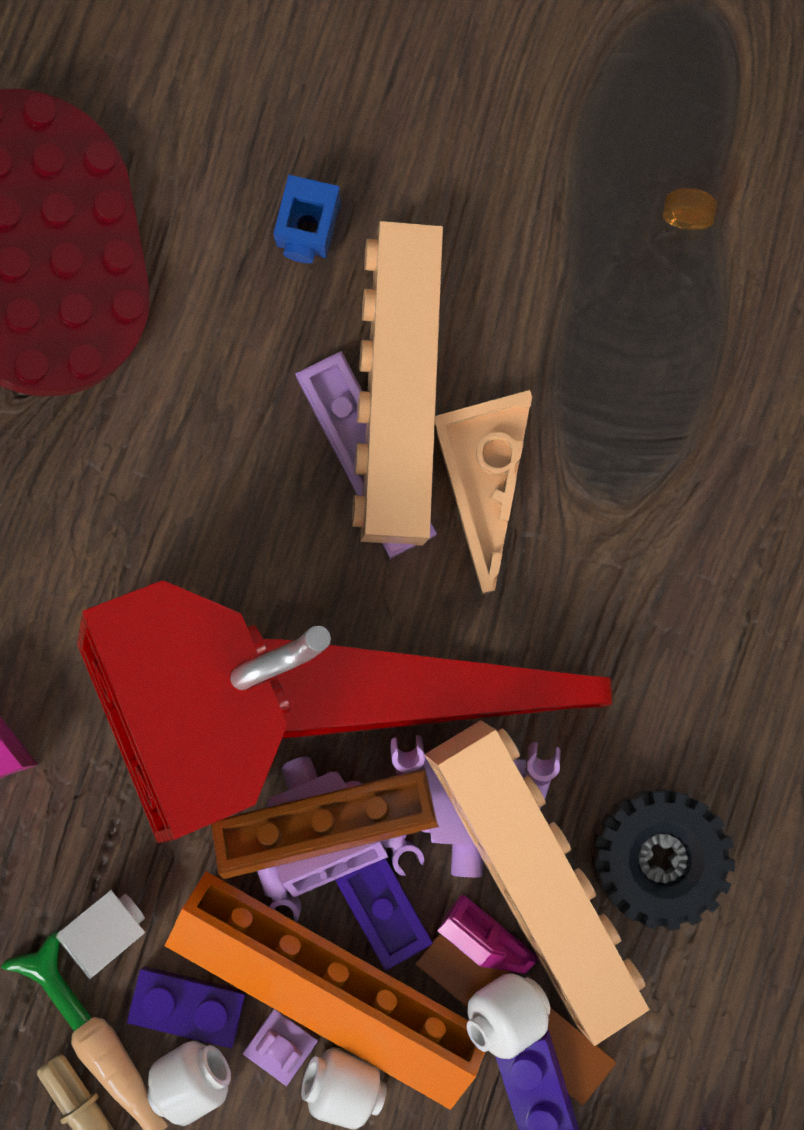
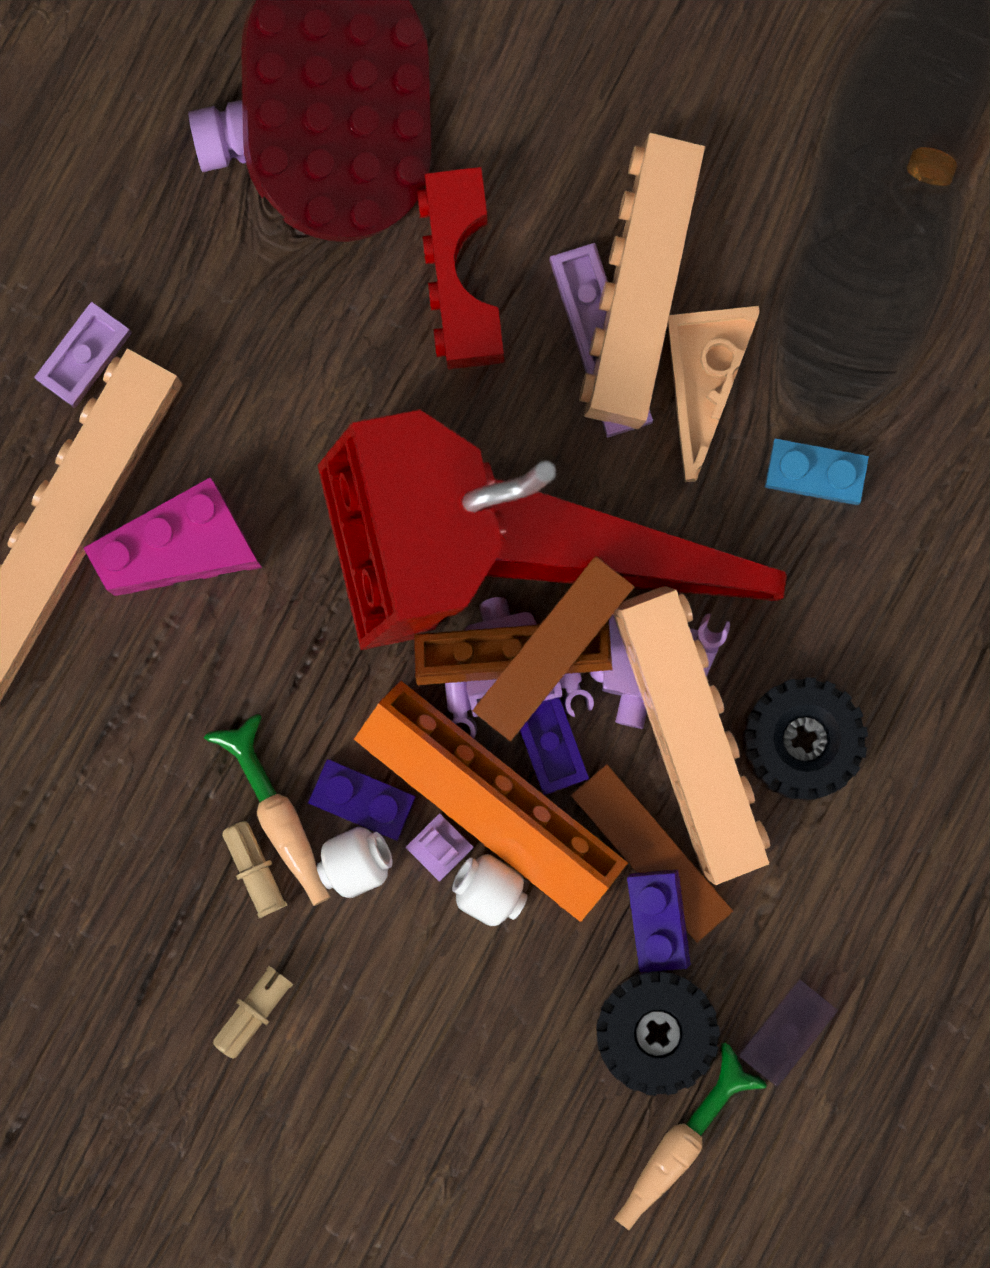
camera: 15 degrees right, 0 degrees up
(102, 932) = (299, 719): white brick -> none
(185, 342) = (456, 211): none -> red arch
(306, 202) = (586, 103): blue brick -> none
(367, 818) = (553, 648): none -> dark orange tile
(484, 938) = (636, 784): dark pink tile -> none
(508, 1015) = (645, 845): white head -> none
(622, 559) = (816, 471): none -> dark azure plate

